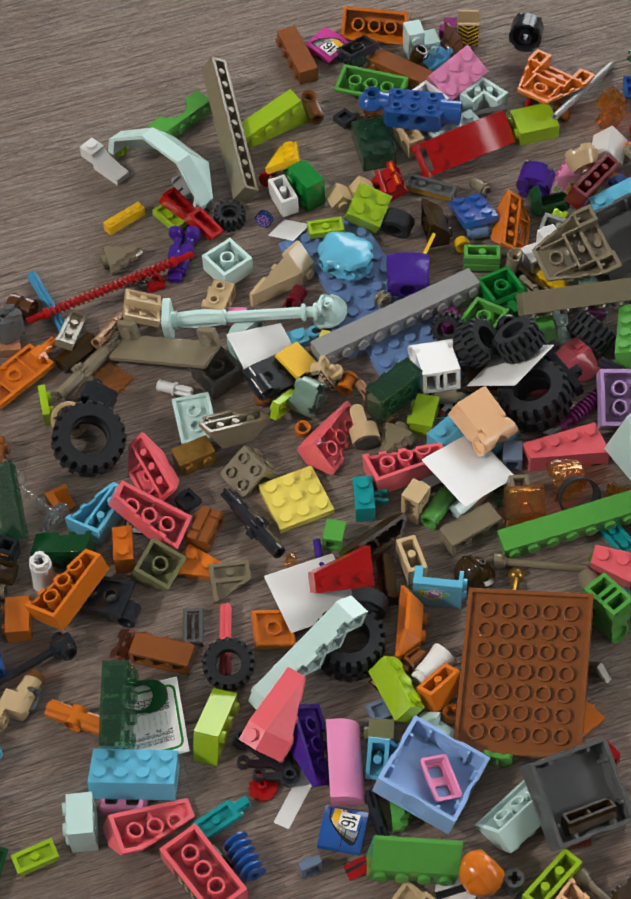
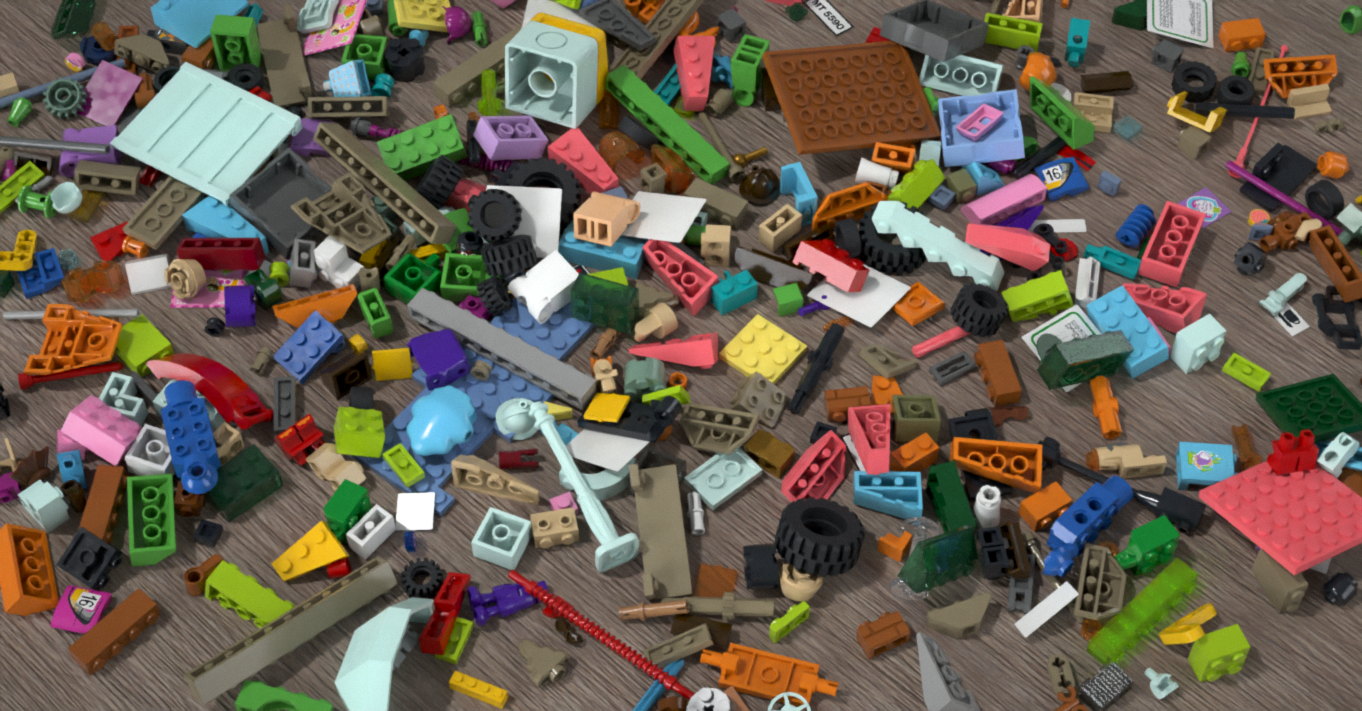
camera: 120 degrees left, 0 degrees up
(142, 308) = (607, 596): tan slope -> none
(212, 779) = (1087, 281): none -> white piece
(588, 816) = (942, 26): dark brown piece -> none

